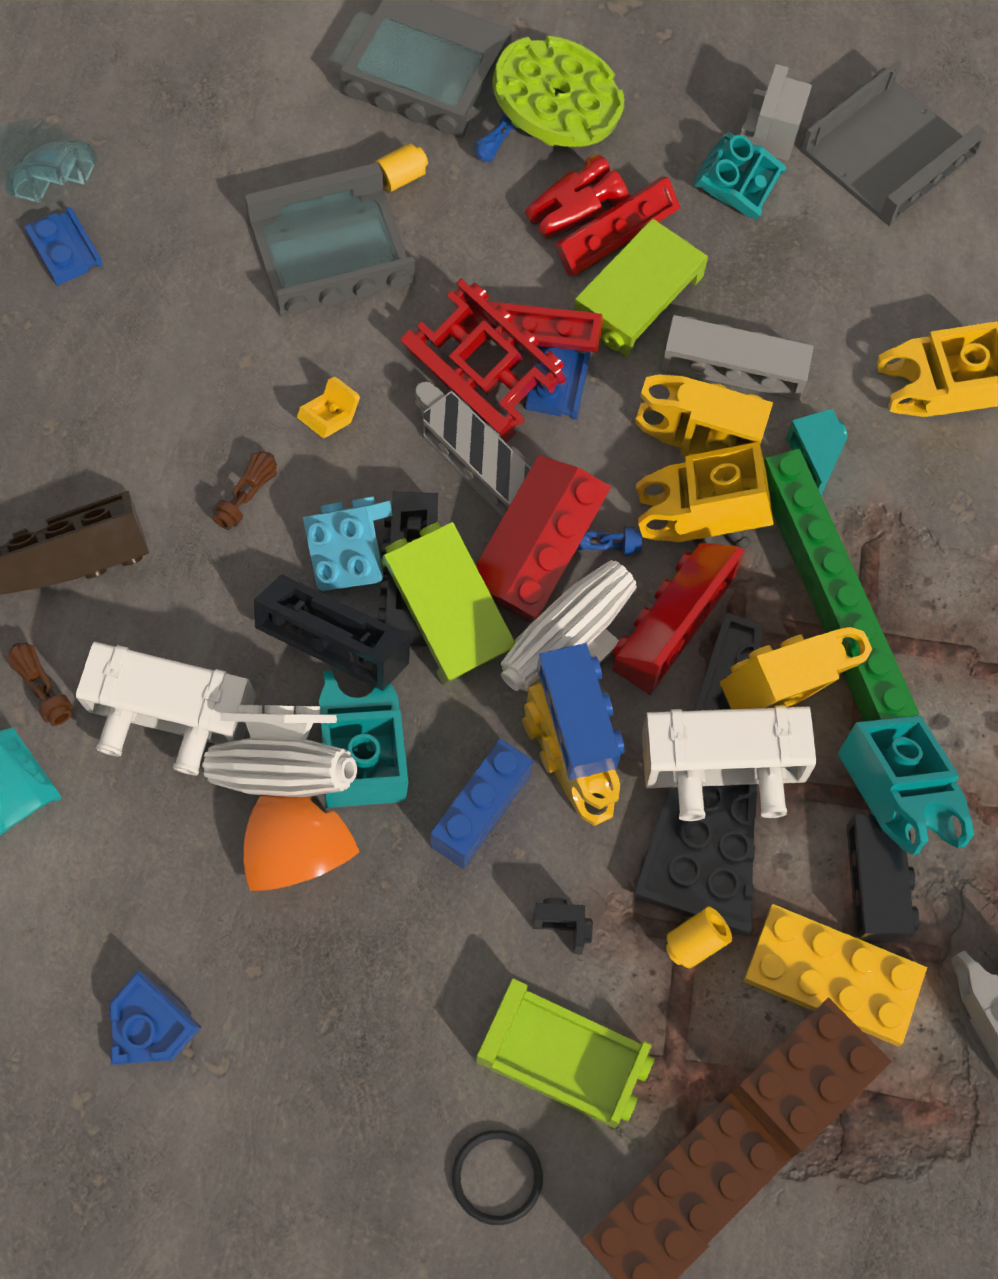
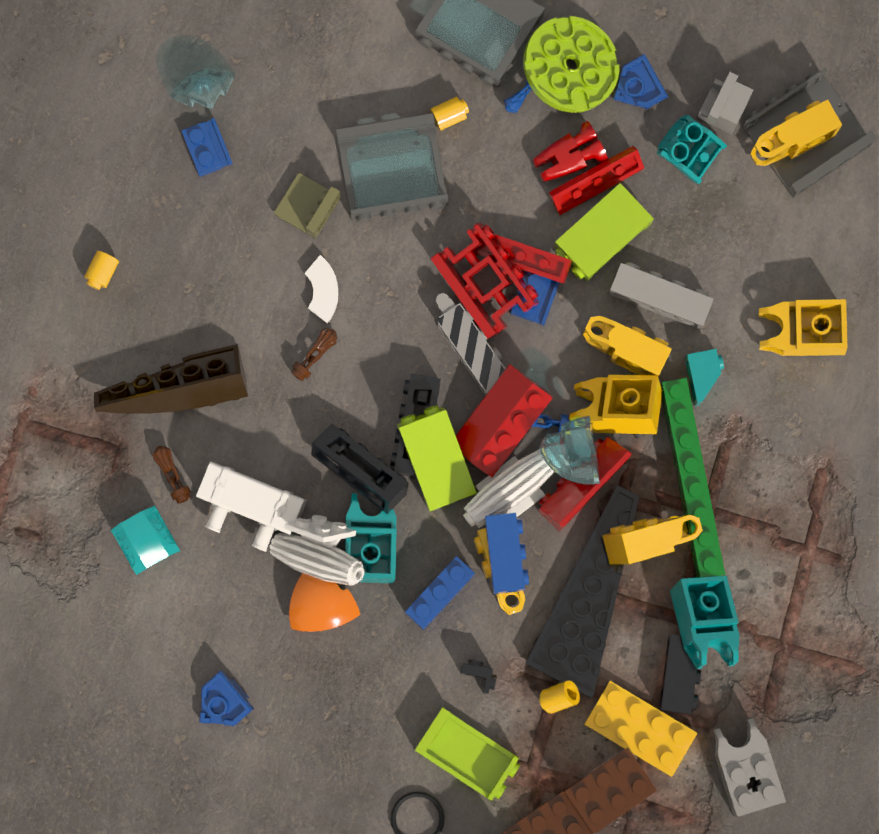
camera: 10 degrees right, 15 degrees up
(216, 298) = (307, 205): none -> olive bracket
(251, 405) = (324, 289): none -> white tile
(330, 410) = (376, 302): yellow bracket -> none
(345, 543) = (375, 405): medium azure bracket -> none
(655, 110) = (639, 84): none -> blue plate
(656, 557) = (573, 452): none -> clear light blue brick
(728, 749) = (598, 584): white piece -> none
(884, 133) = (798, 133): none -> yellow brick

